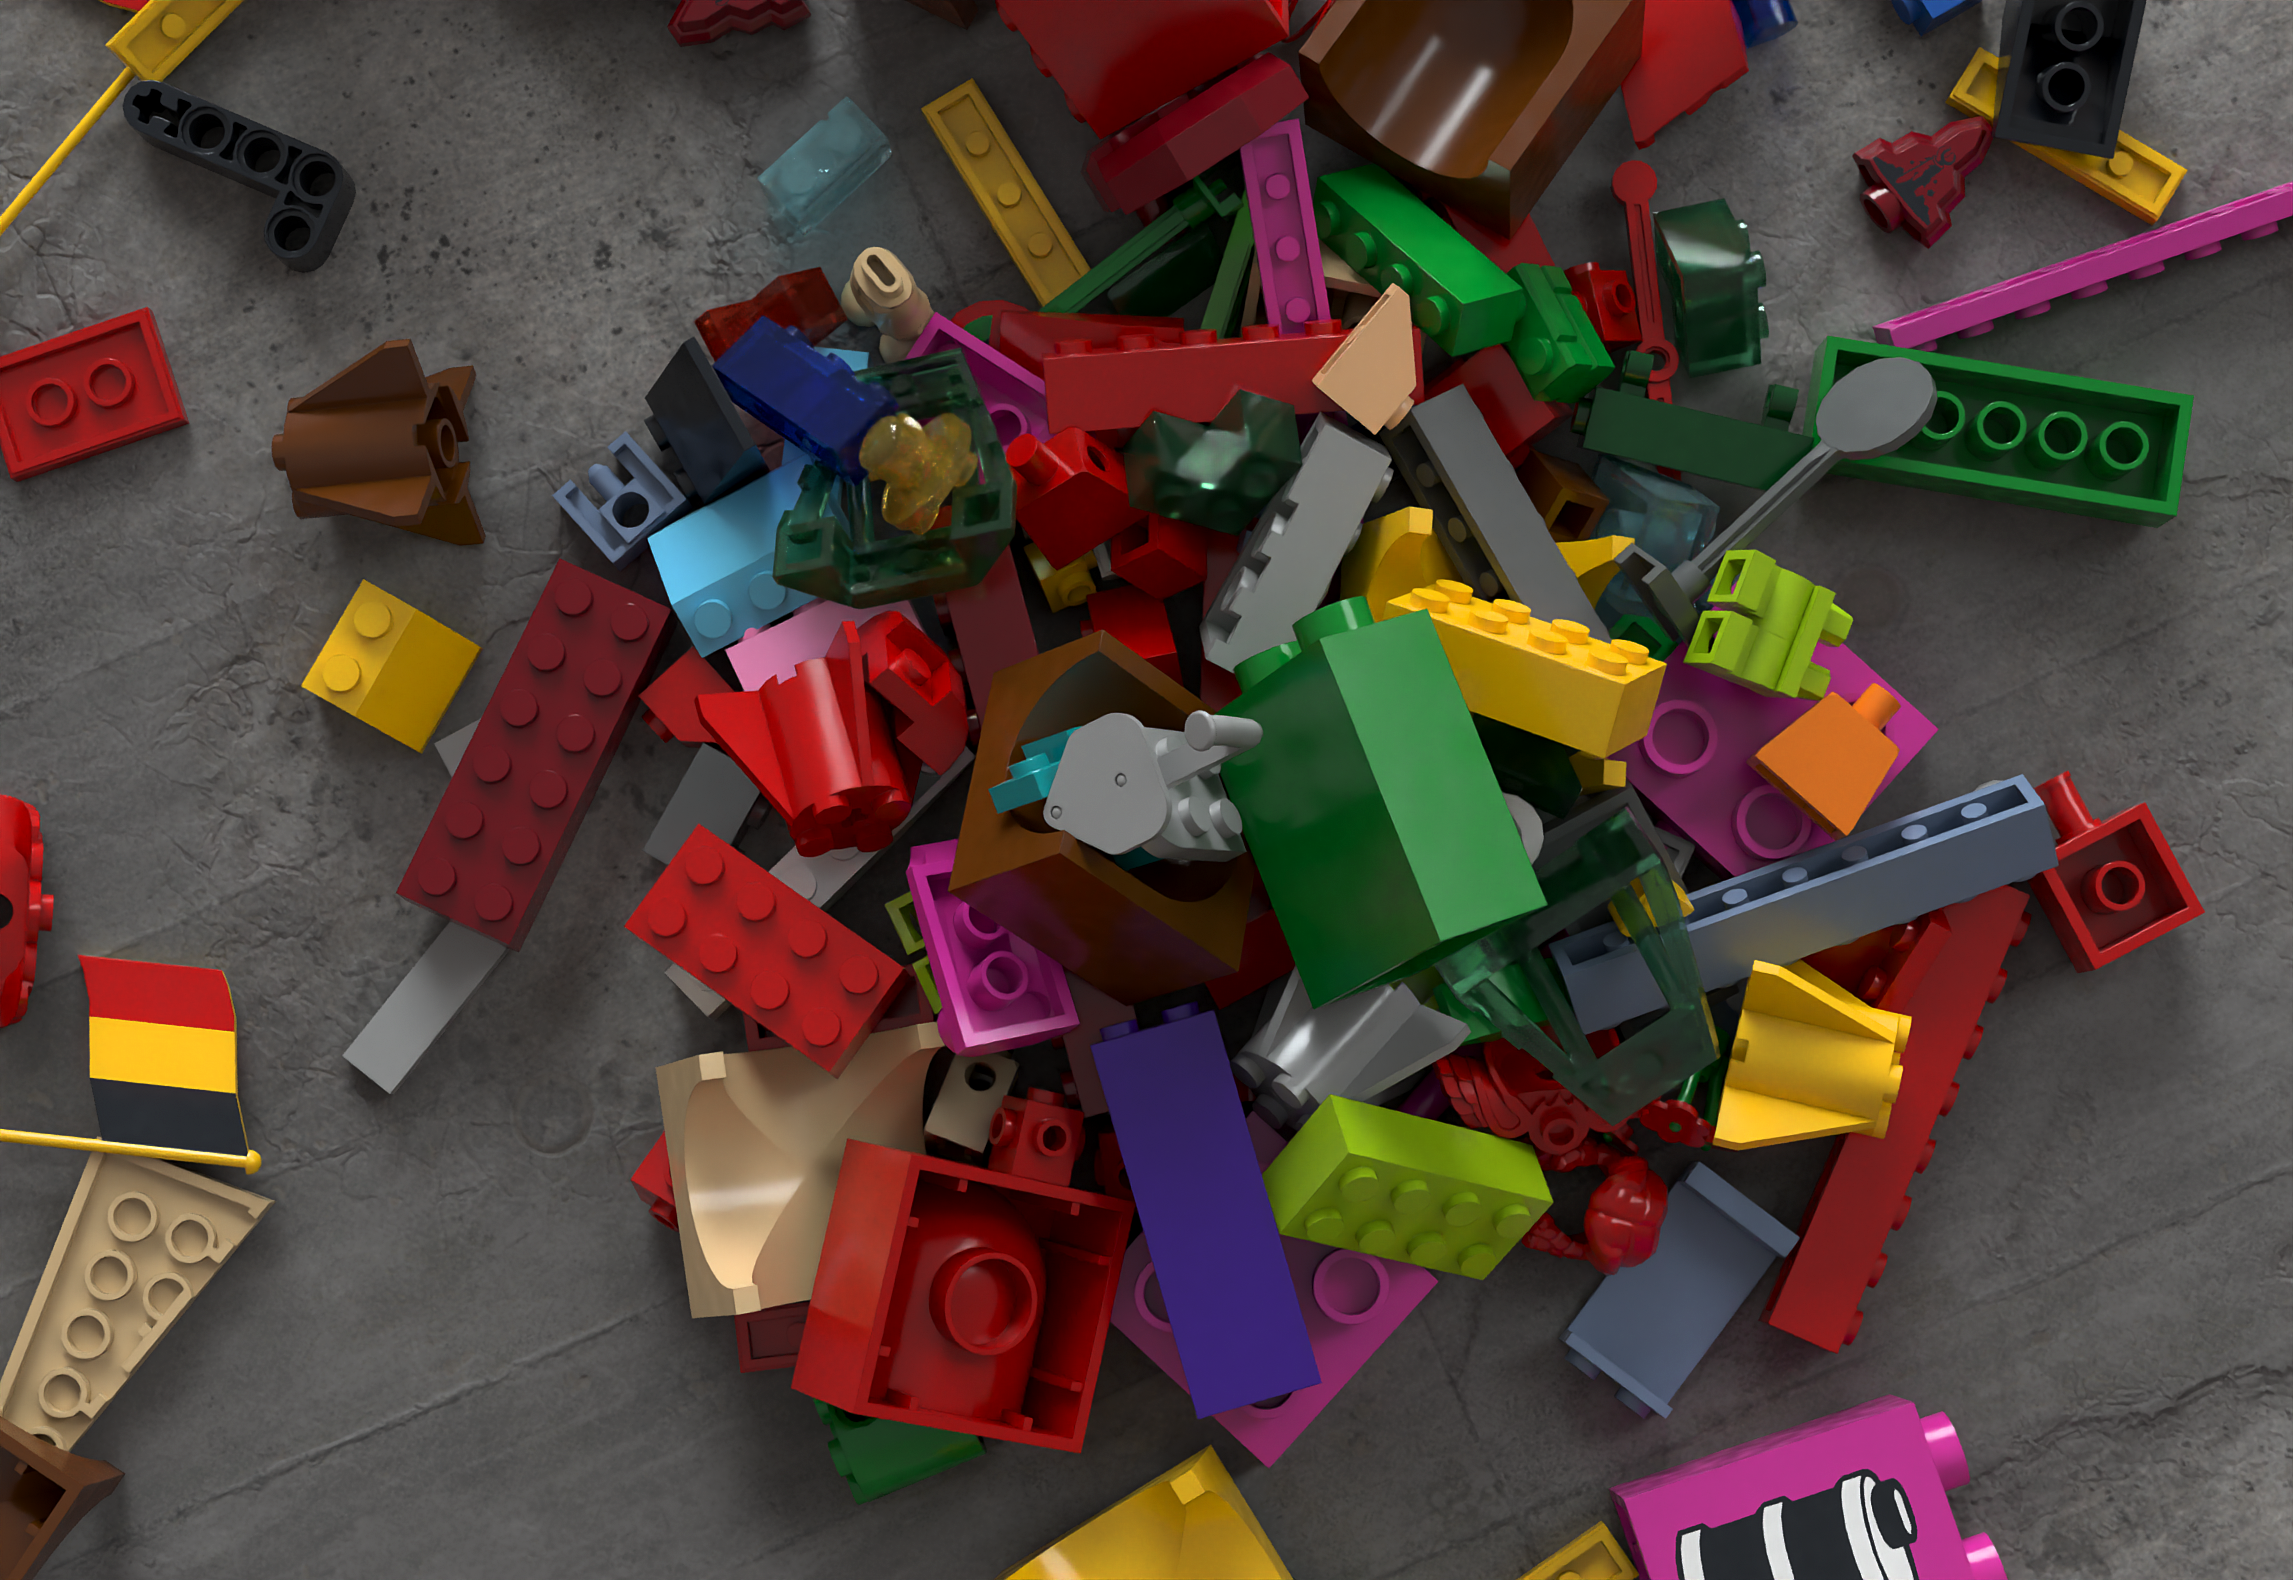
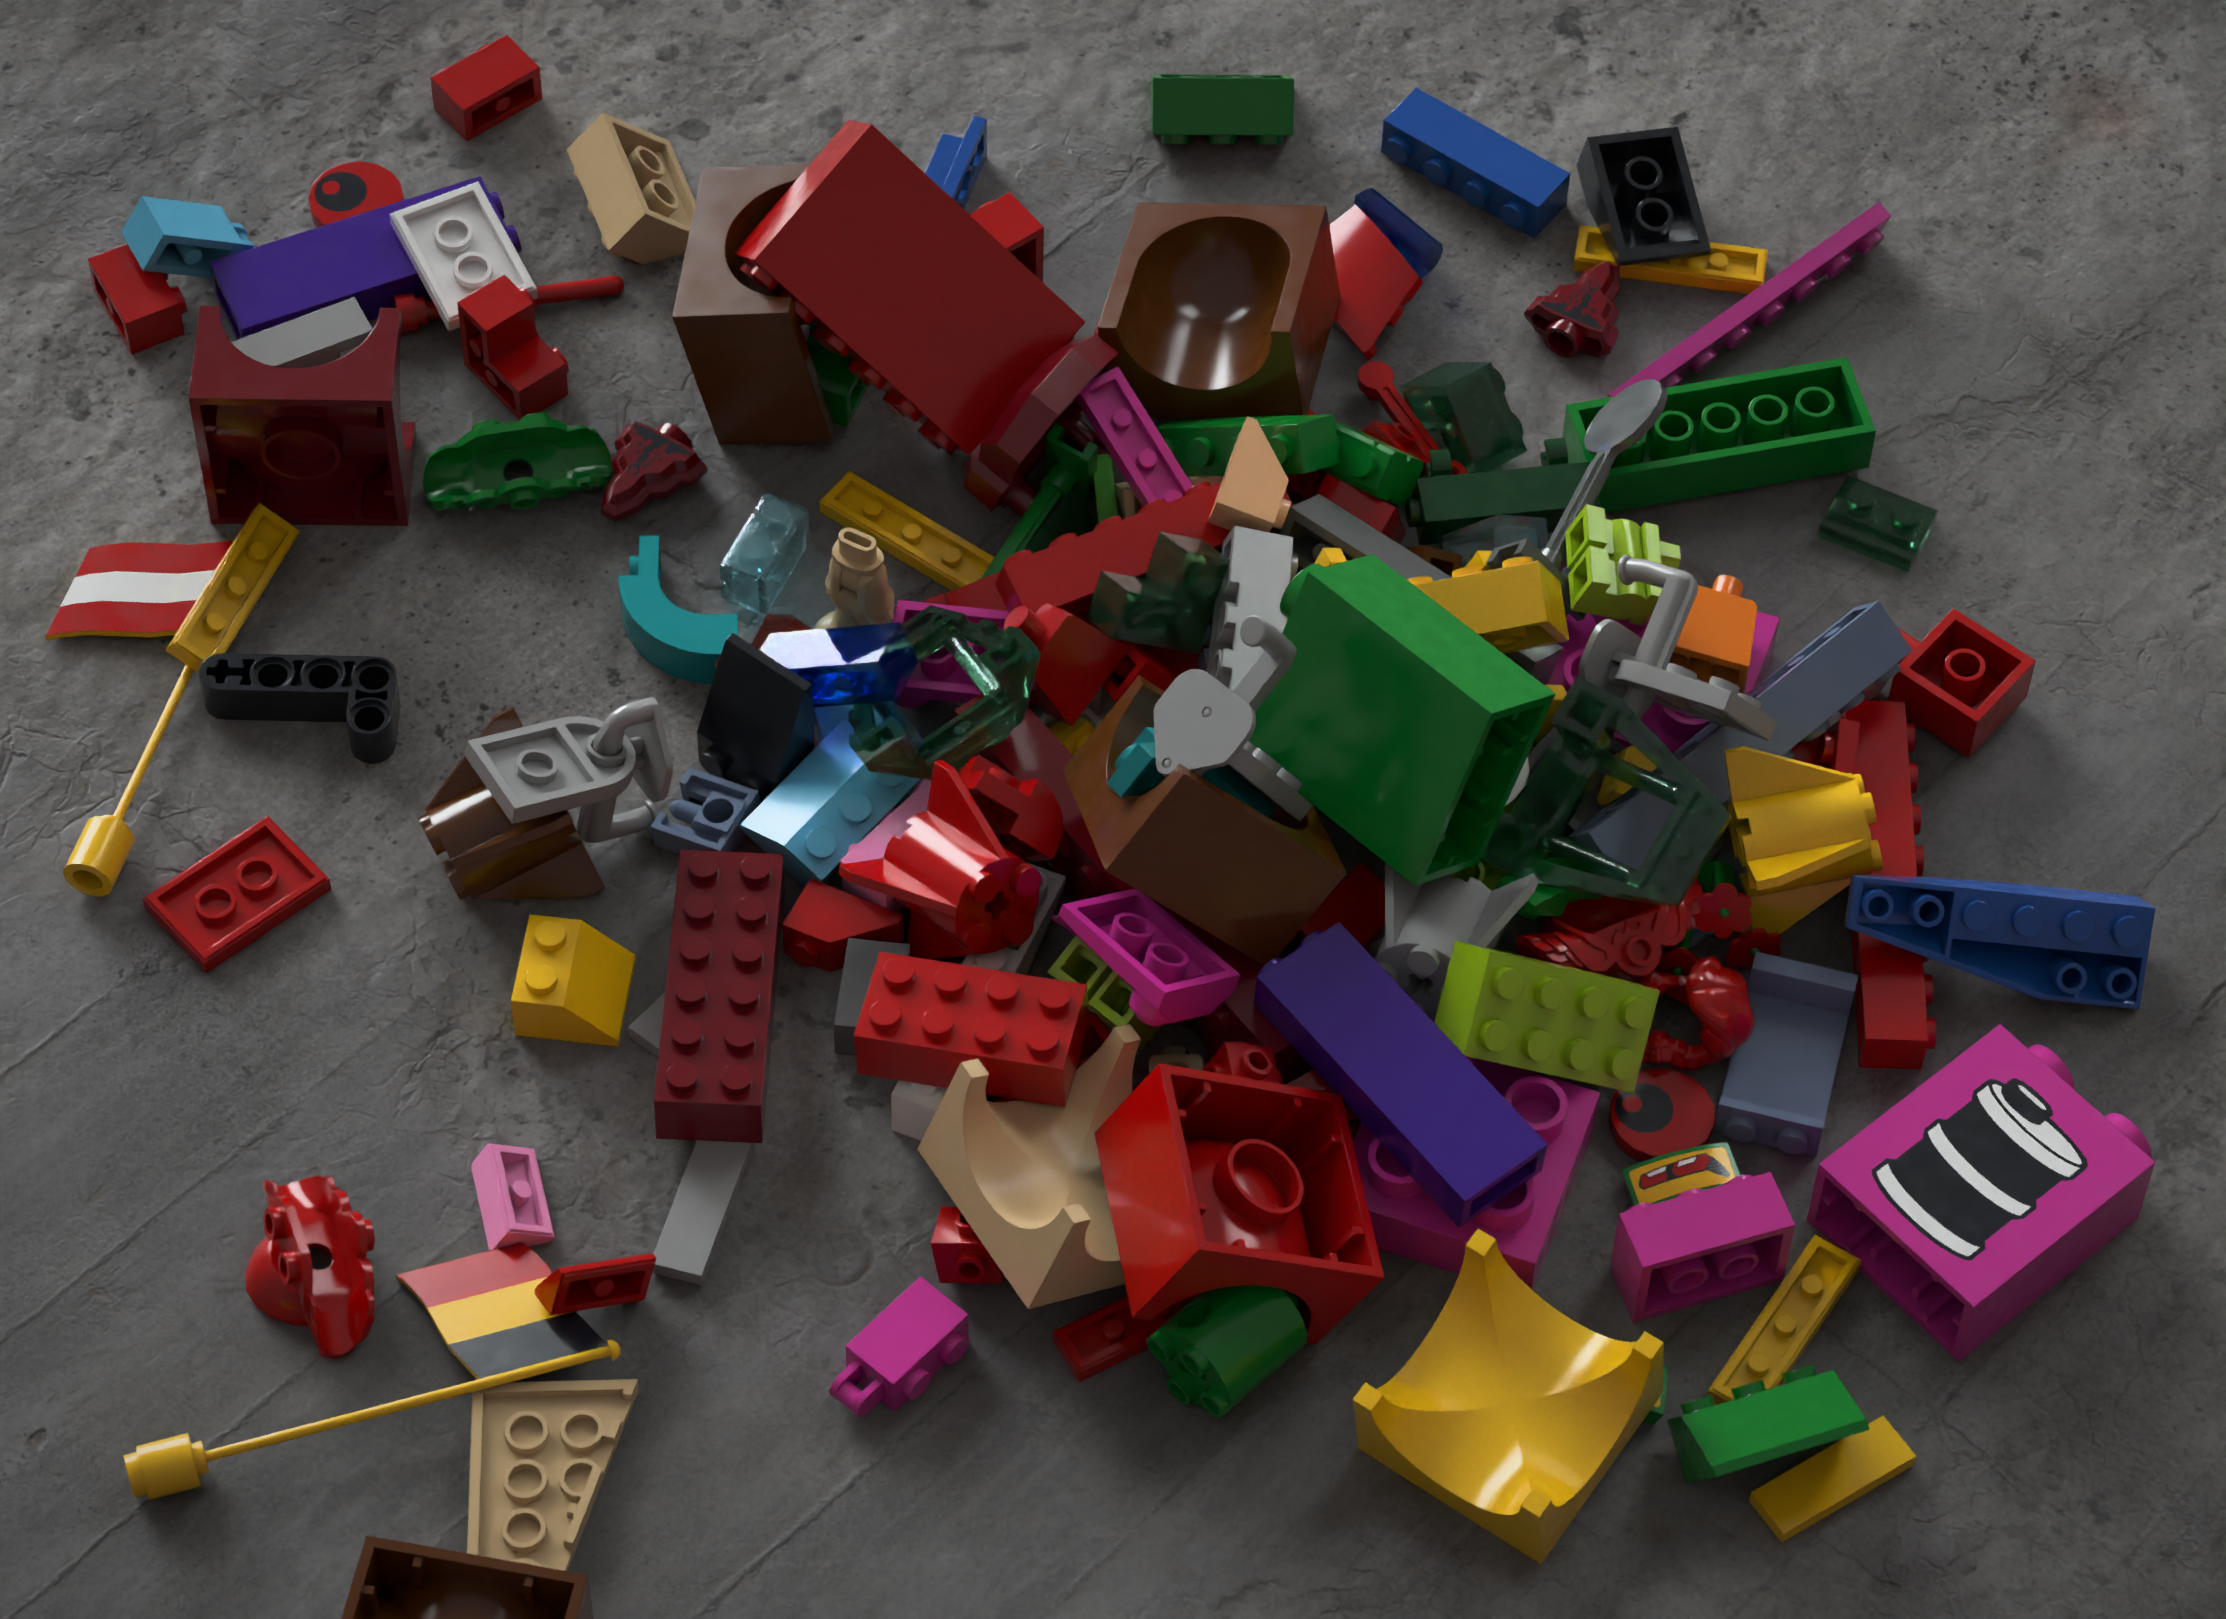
camera: 25 degrees left, 30 degrees down
(234, 908) = (511, 1196): none -> bright pink slope
(264, 1072) = (596, 1284): none -> red slope
(444, 441) = (579, 765): none -> light grey plate
(562, 1275) = (902, 1350): none -> dark pink brick
(691, 258) = (663, 633): none -> teal arch
(917, 466) = (941, 656): clear yellow plate -> none
(1463, 1510) = (1701, 1246): none -> dark pink brick
(1493, 1398) = (1680, 1171): none -> slope
(1513, 1311) = (1661, 1115): none -> red tile
(1711, 804) = (1640, 667): none -> light grey plate
(2005, 1255) = (2016, 935): none -> blue wedge
(2129, 610) = (1877, 523): none -> clear green plate

